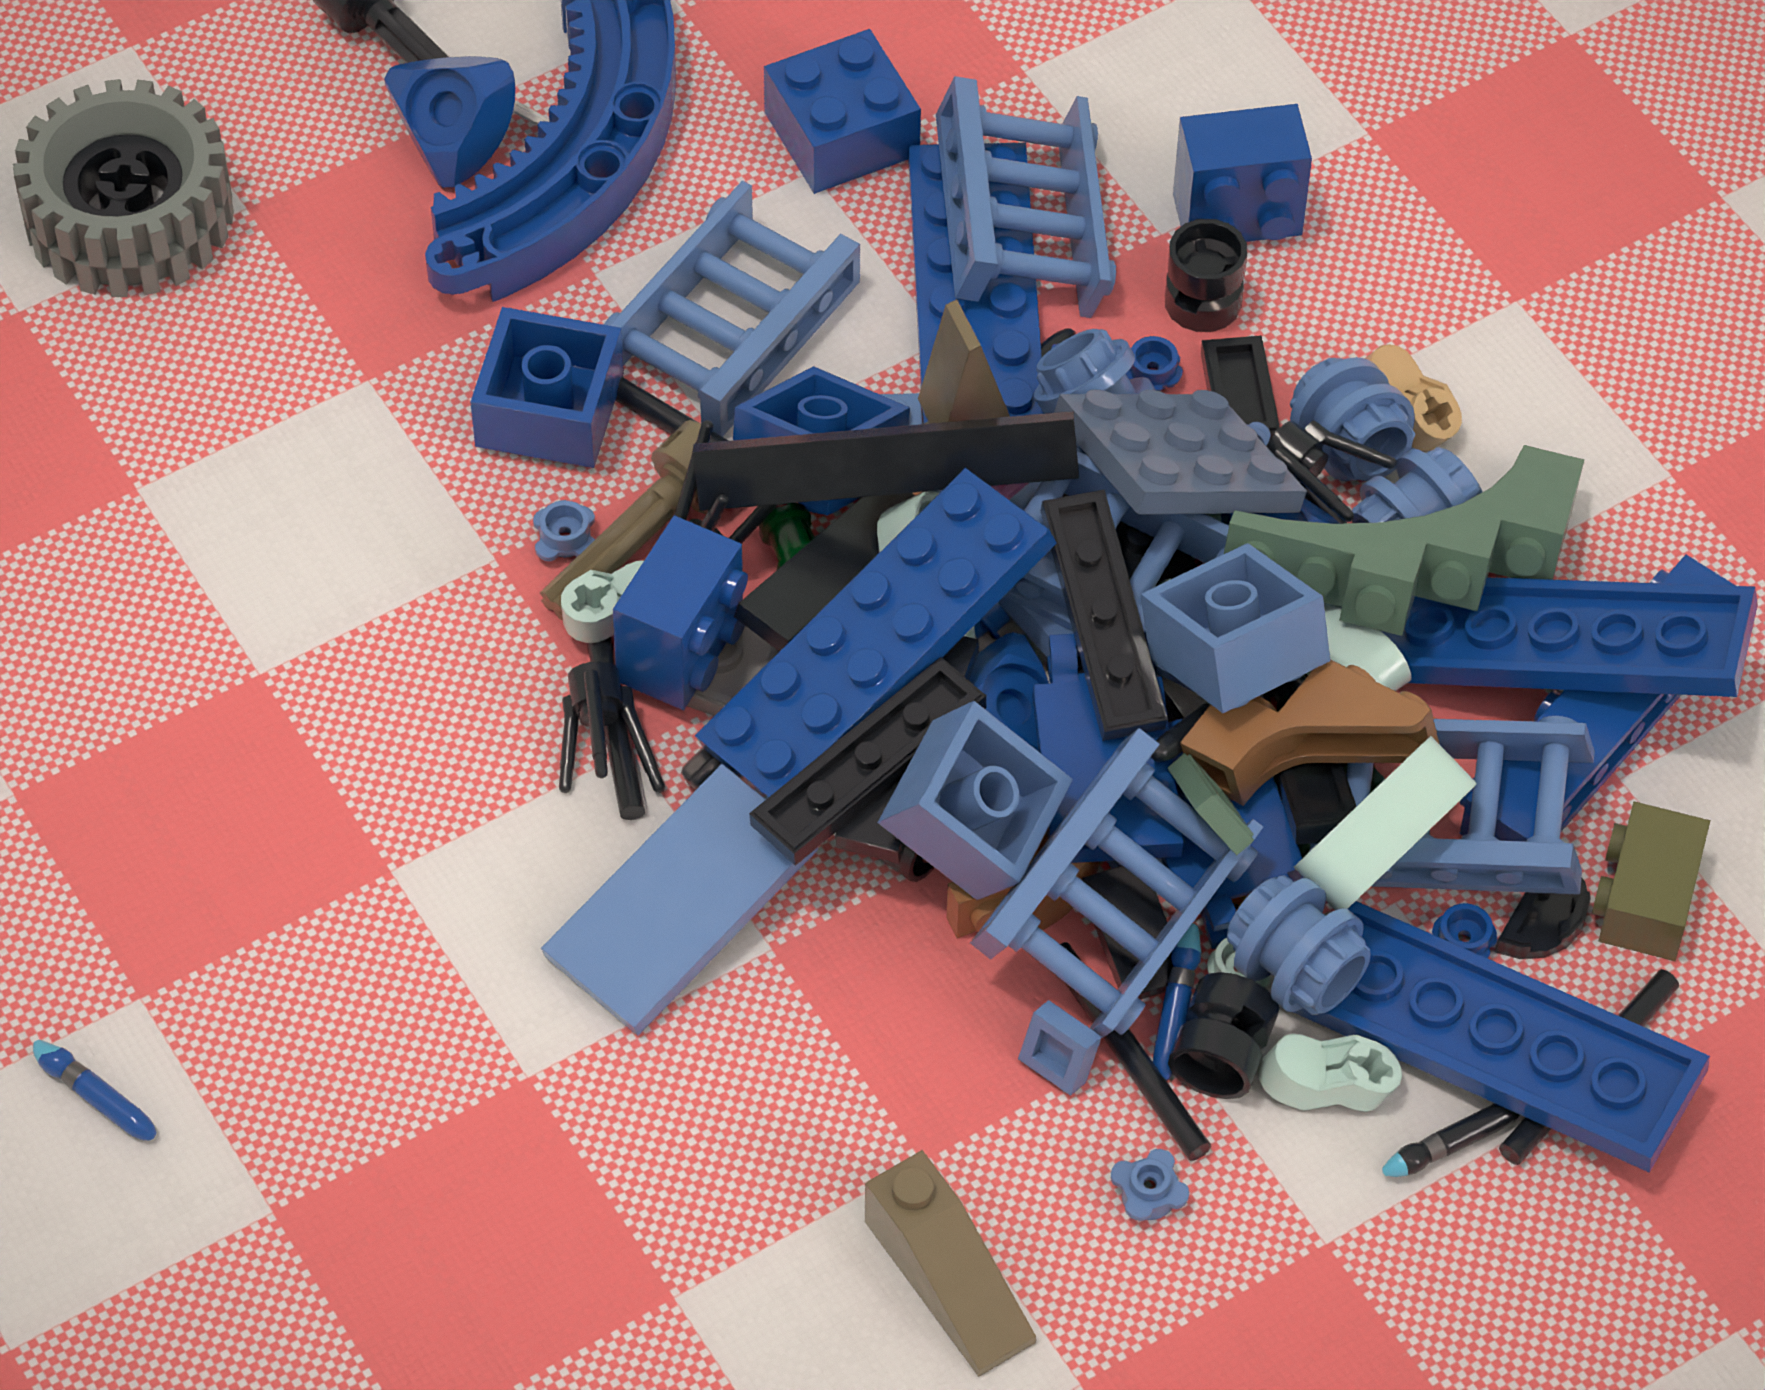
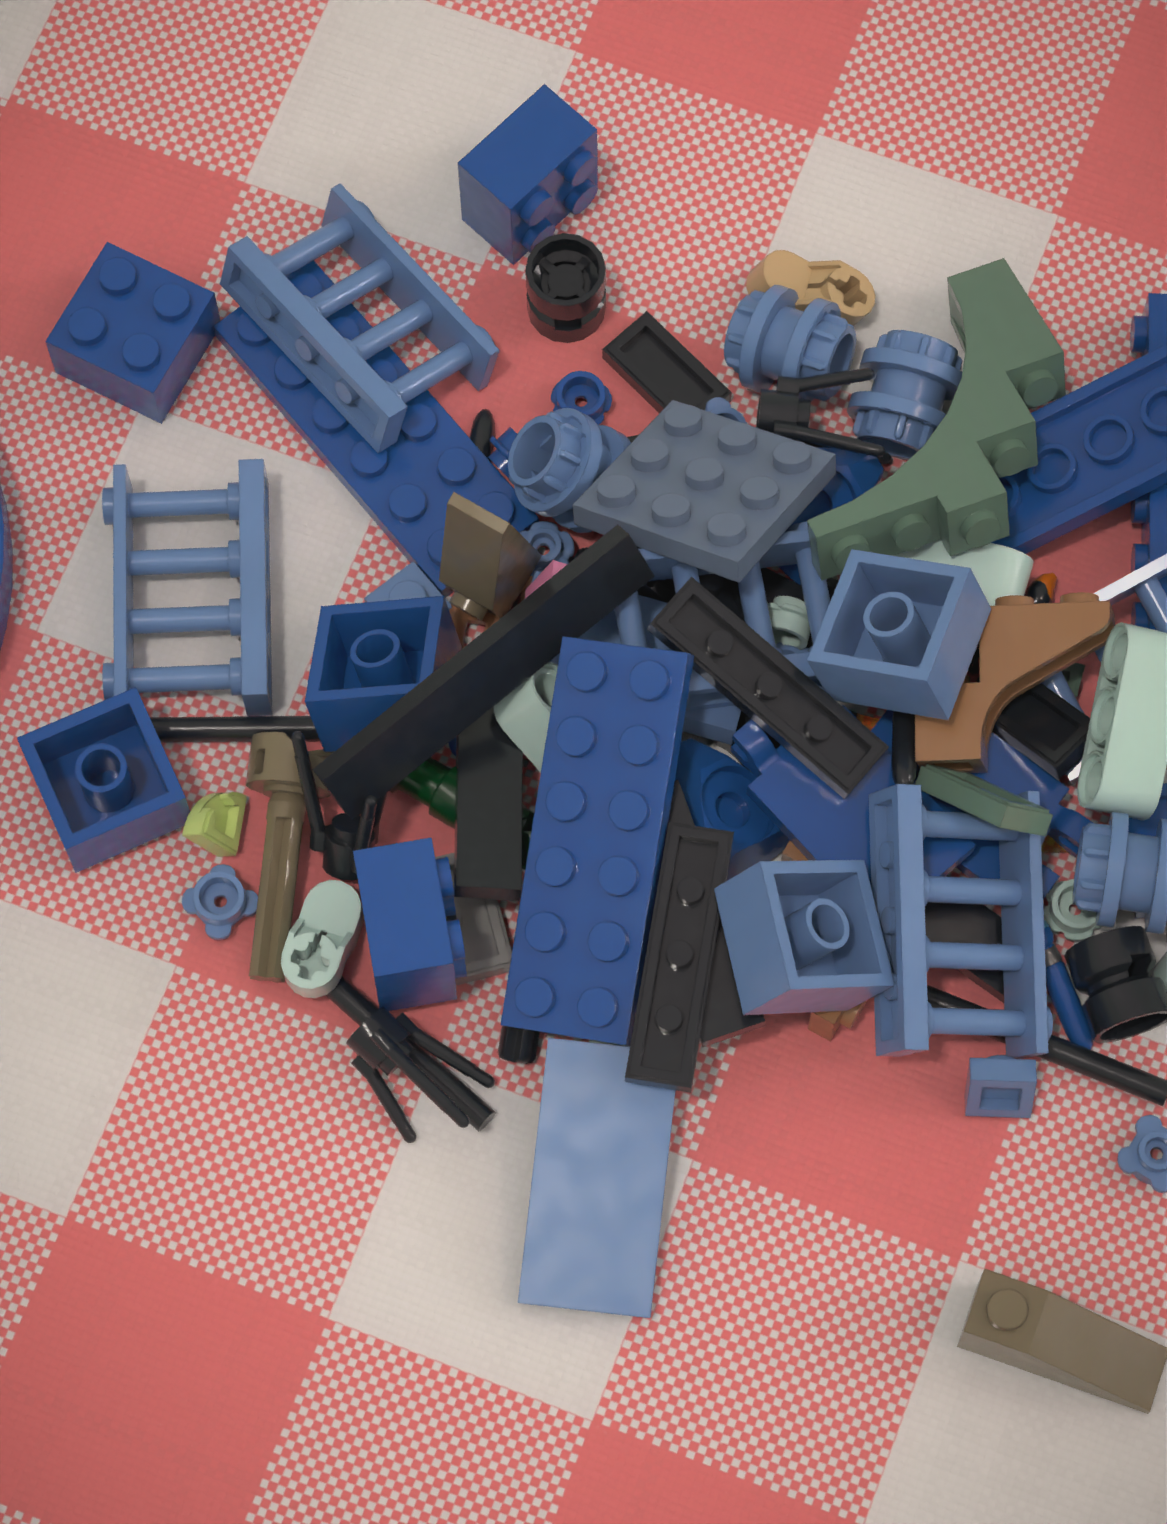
camera: 35 degrees left, 15 degrees up
(608, 475) = (217, 823): none -> yellowish green tile

